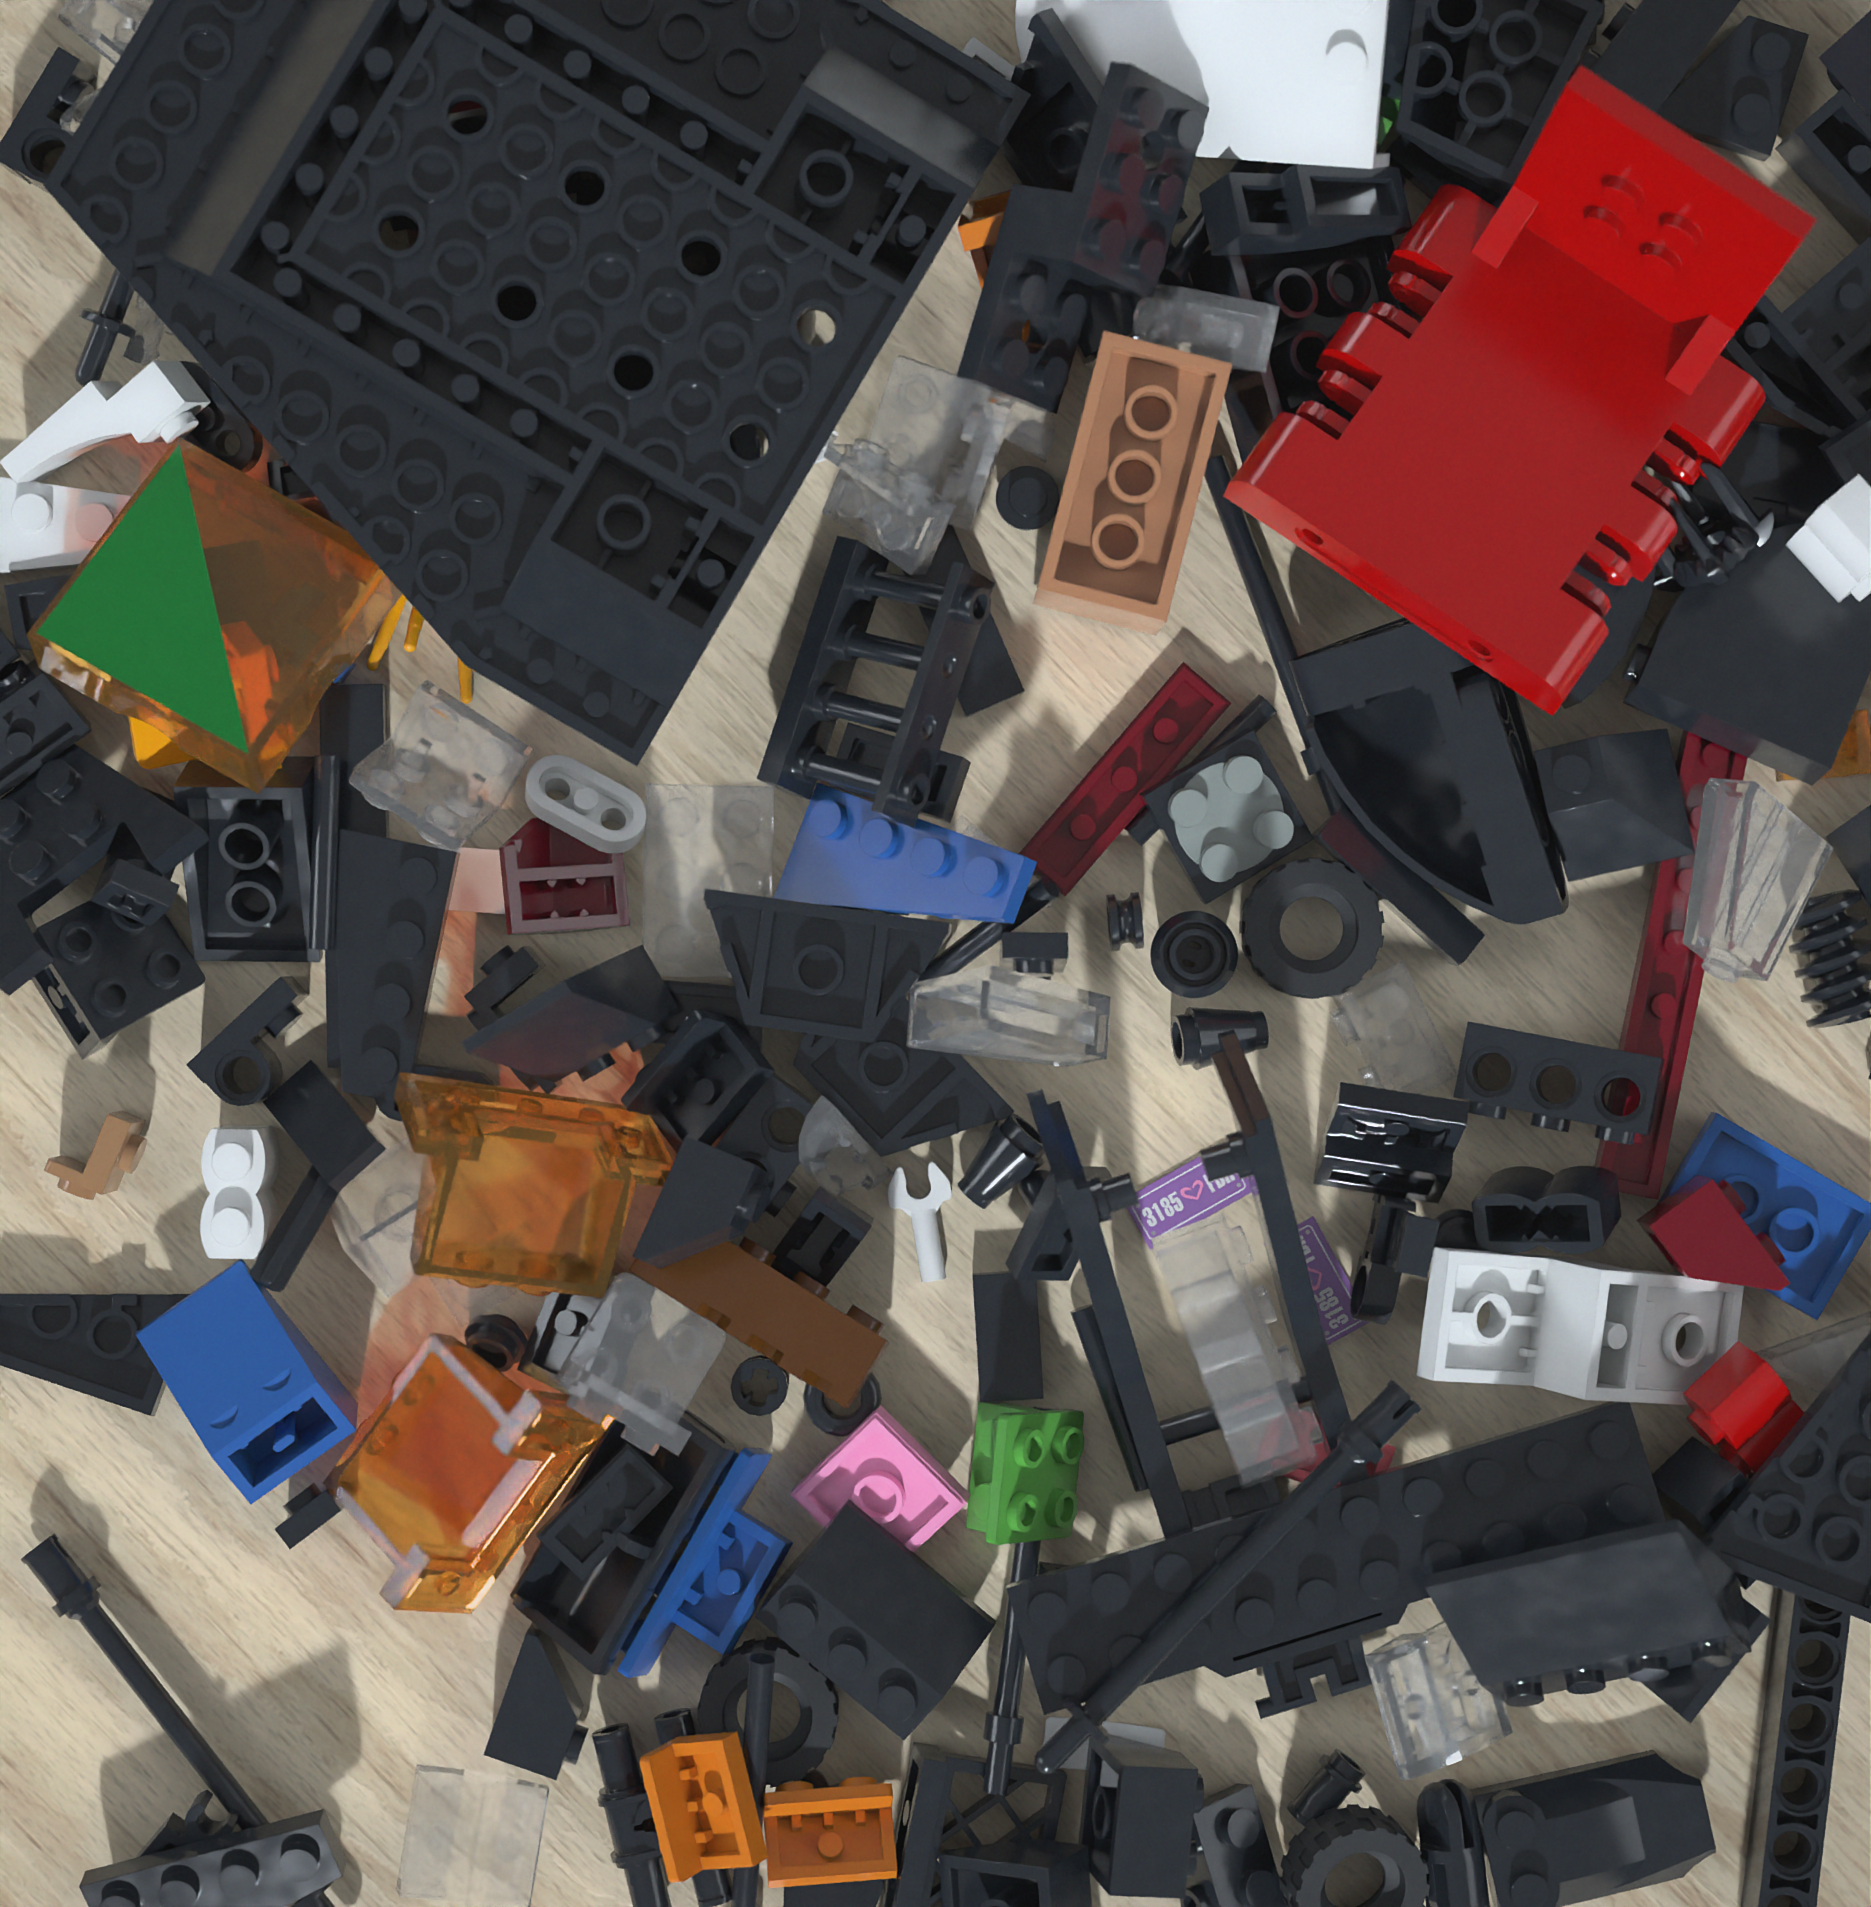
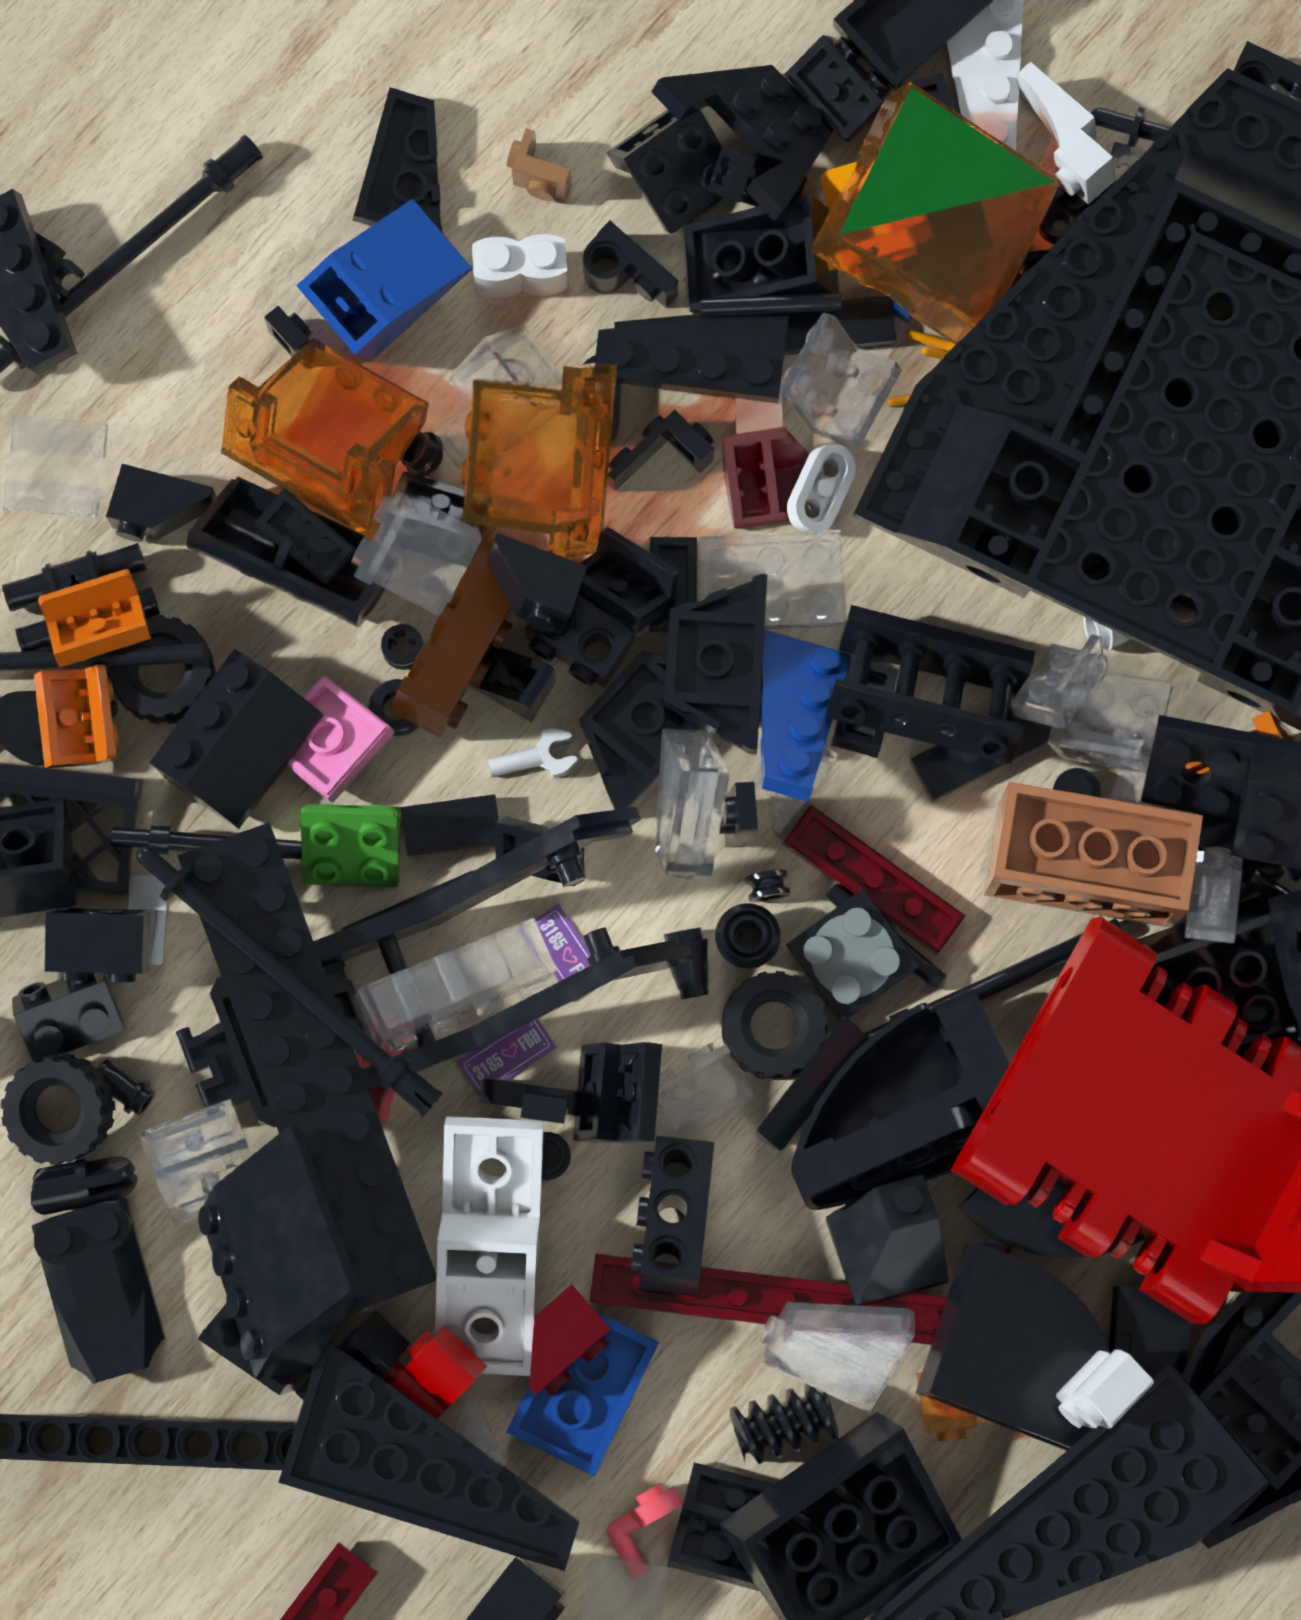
camera: 85 degrees right, 10 degrees down
(294, 1232) = (515, 316): black axle -> none
(324, 1125) = (572, 320): black tile -> none
(581, 1020) = (665, 488): black slope -> none
(718, 1575) = (264, 623): blue bracket -> none
(836, 1153) = (579, 684): clear tile -> none
(989, 933) = (744, 773): black bar -> none
(1002, 1161) = (572, 800): black cone -> none
(1558, 1211) = (576, 1212): black brick -> none
(1709, 544) = (1095, 1303): black piece -> none

